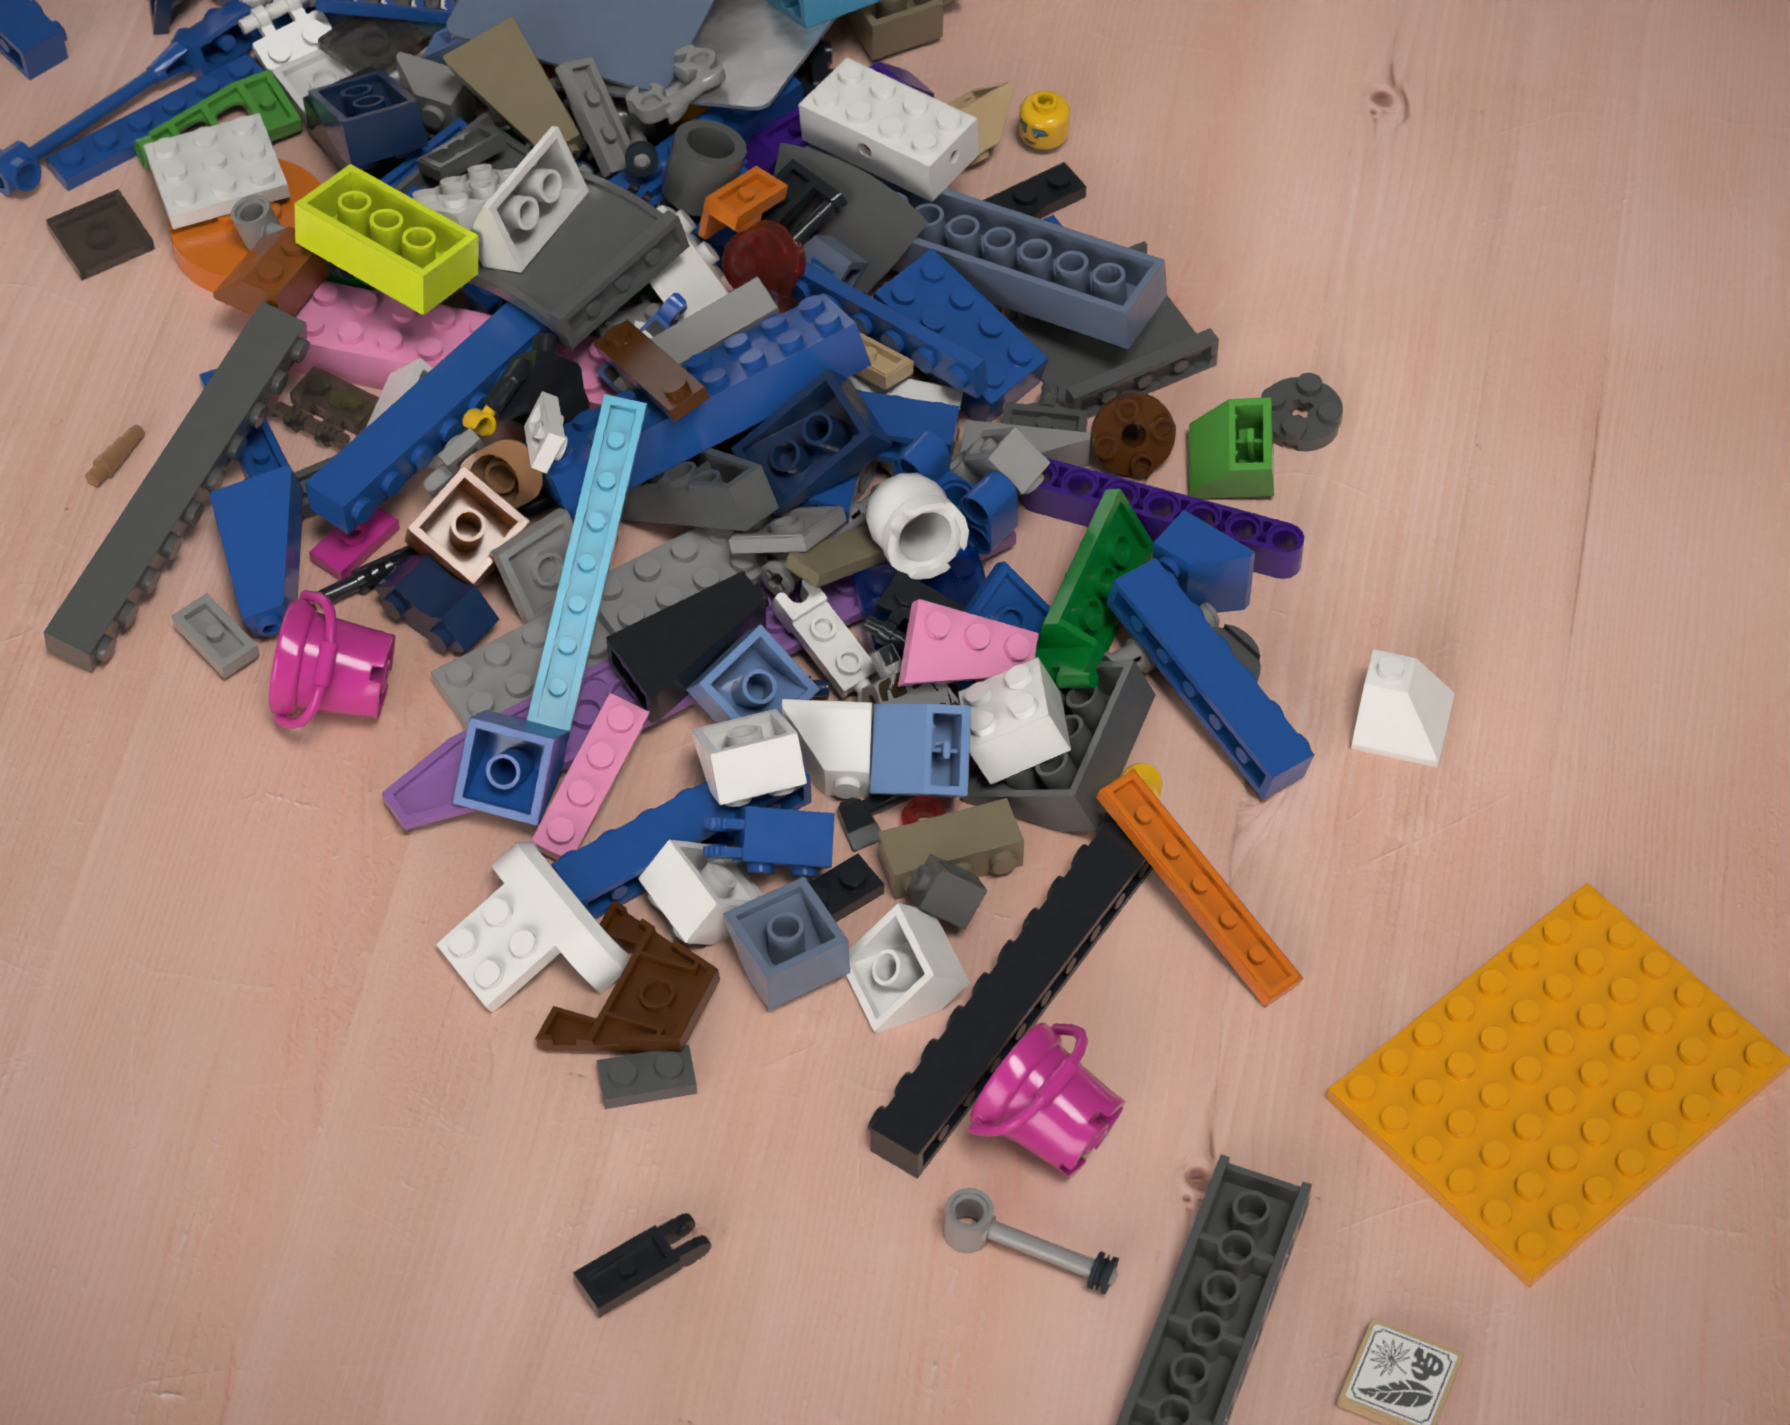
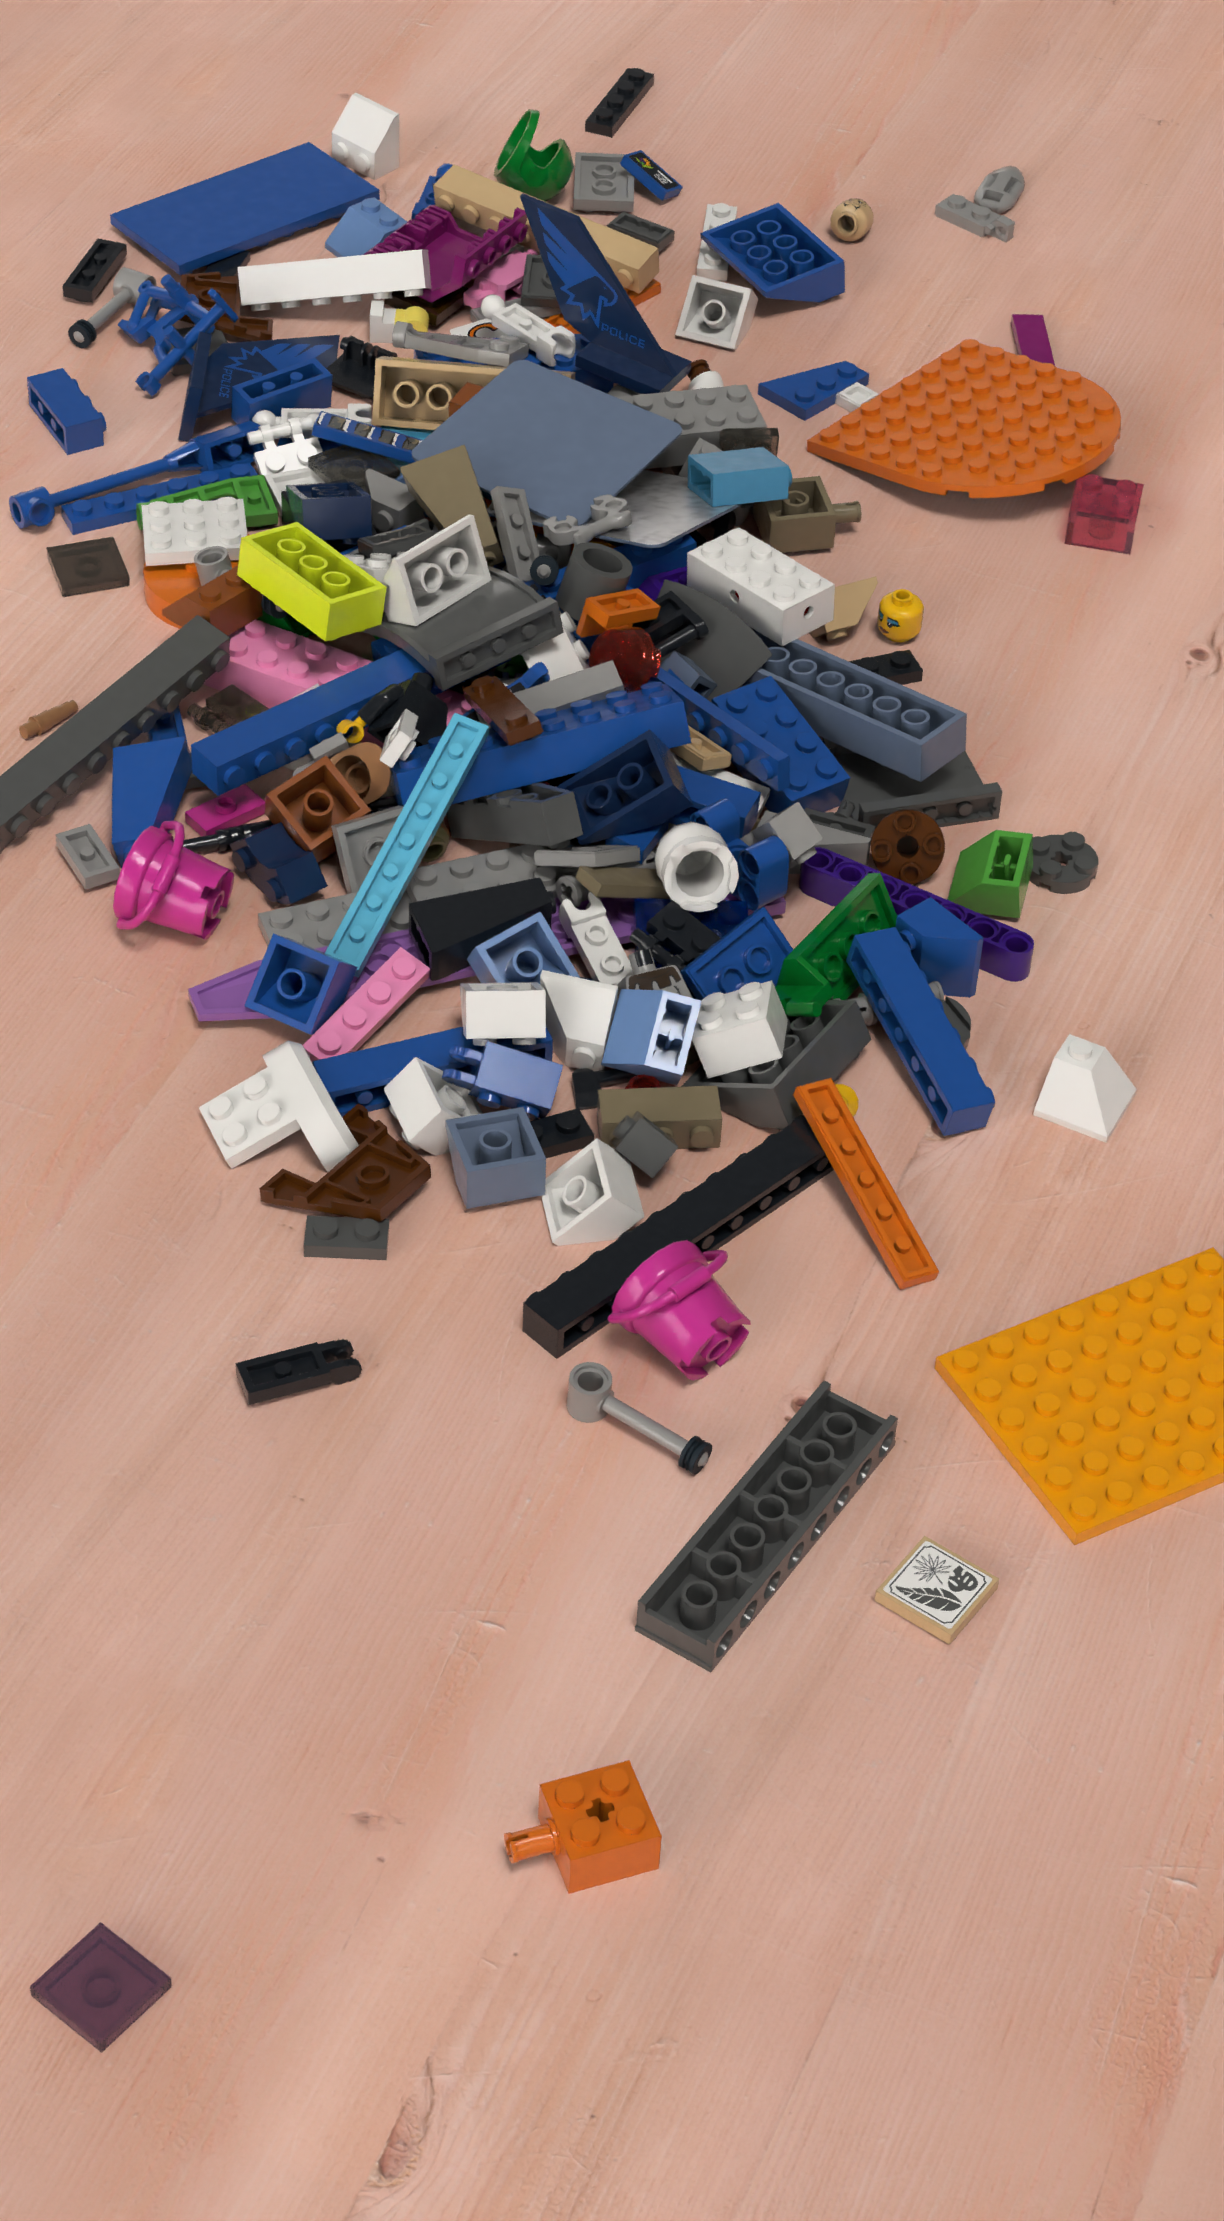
camera: 10 degrees right, 10 degrees down
(960, 646) = (705, 960): bright pink wing -> none

